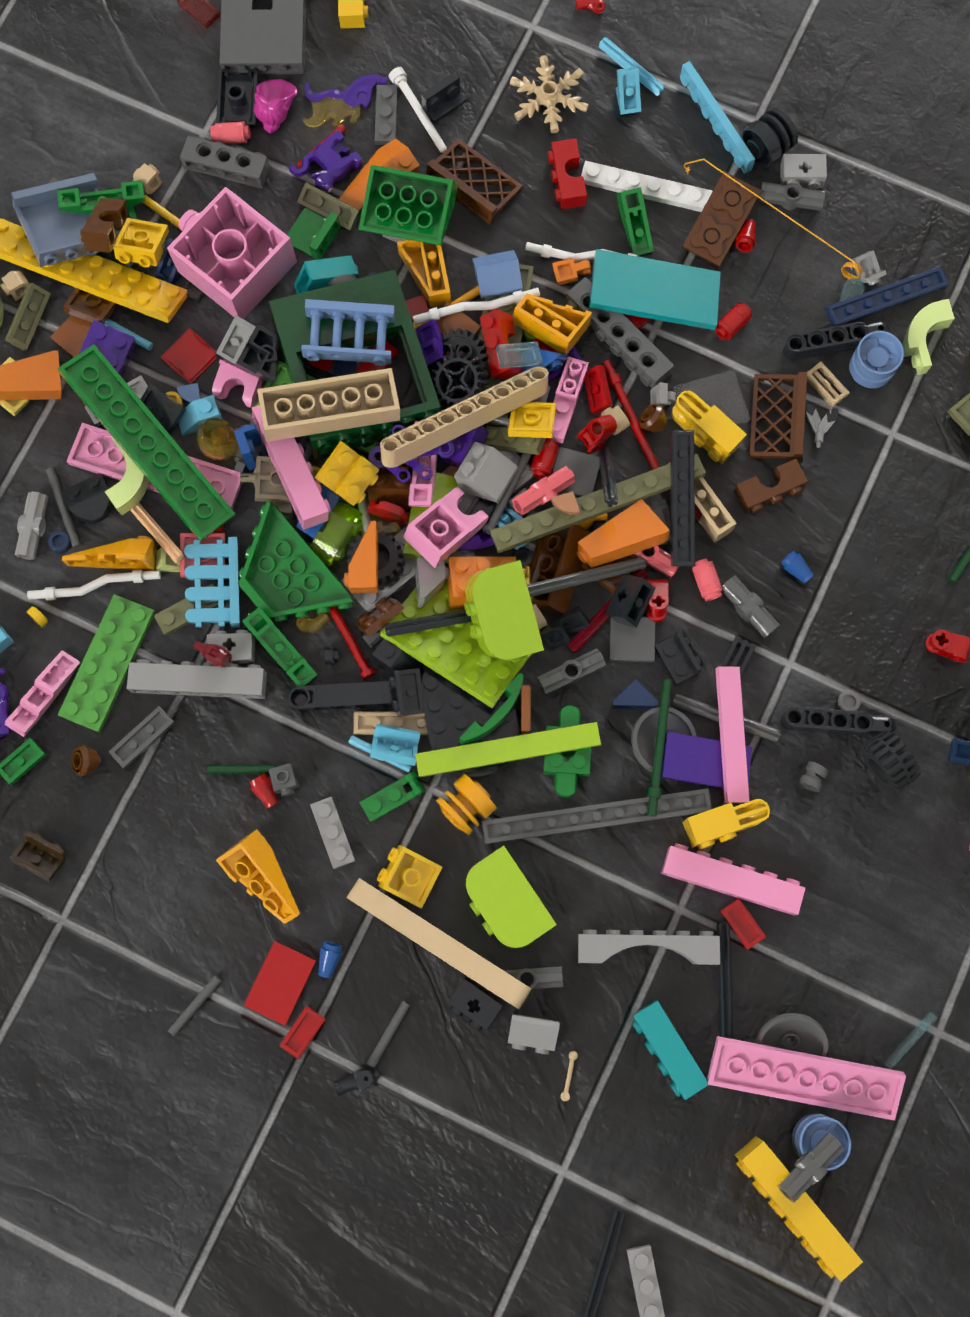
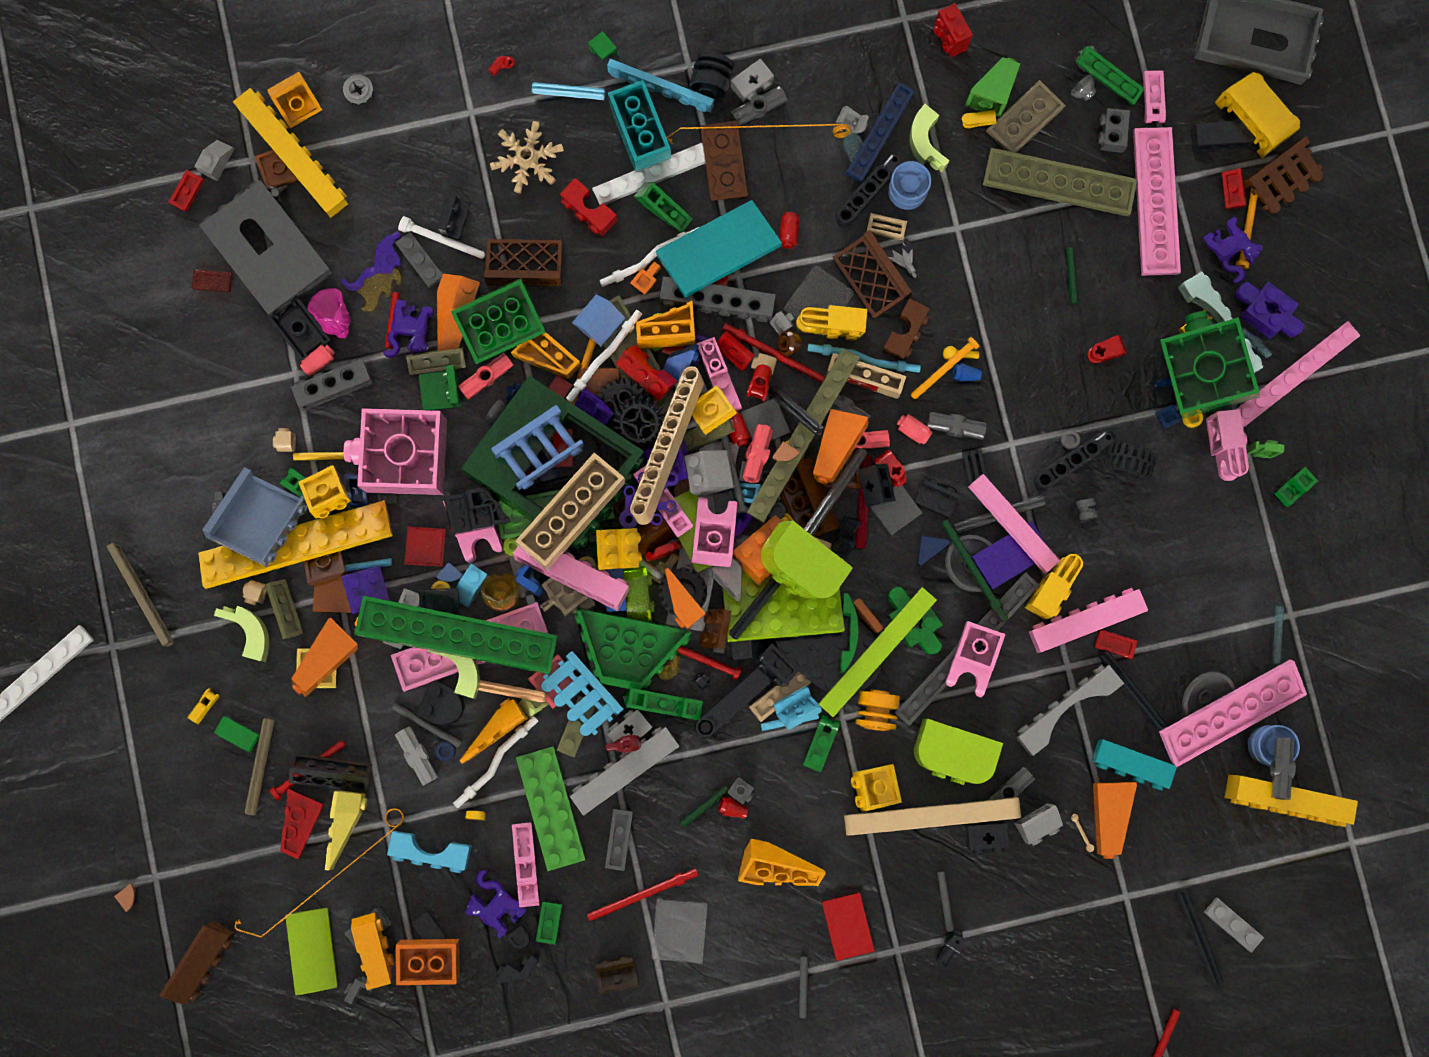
camera: 45 degrees left, 5 degrees up
(83, 203) = (268, 482): green slope -> none
(85, 760) = (593, 887): reddish brown cone -> none
(99, 229) = (287, 493): reddish brown arch -> none
(127, 863) = (679, 931): none -> clear piece
(162, 815) = (678, 879): none -> red bar
(235, 339) = (460, 513): light grey slope -> none
(302, 1032) = (888, 946): red tile -> none
(320, 272) = (473, 419): teal slope -> none
(329, 958) = (867, 883): blue cone -> none
(332, 832) = (801, 799): light grey plate -> none
(373, 249) = (496, 367): none -> coral piece
(519, 354) = (667, 371): clear light blue tile -> none
(584, 665) = (878, 552): dark grey piece -> none
(588, 825) = (978, 663): none -> bright pink brick
(610, 1081) = (1112, 813): none -> orange slope
(628, 90) = (582, 112): medium azure slope -> none
(668, 131) = (639, 125): none -> teal brick
(682, 498) = (858, 387): black tile -> none
(691, 47) = (602, 46): none -> green panel
(739, 515) = (900, 366): none -> medium azure bar
(747, 236) = (750, 160): red cone -> none
(779, 547) = (947, 366): none -> light orange bar
(797, 539) = (950, 351): none -> yellow bar

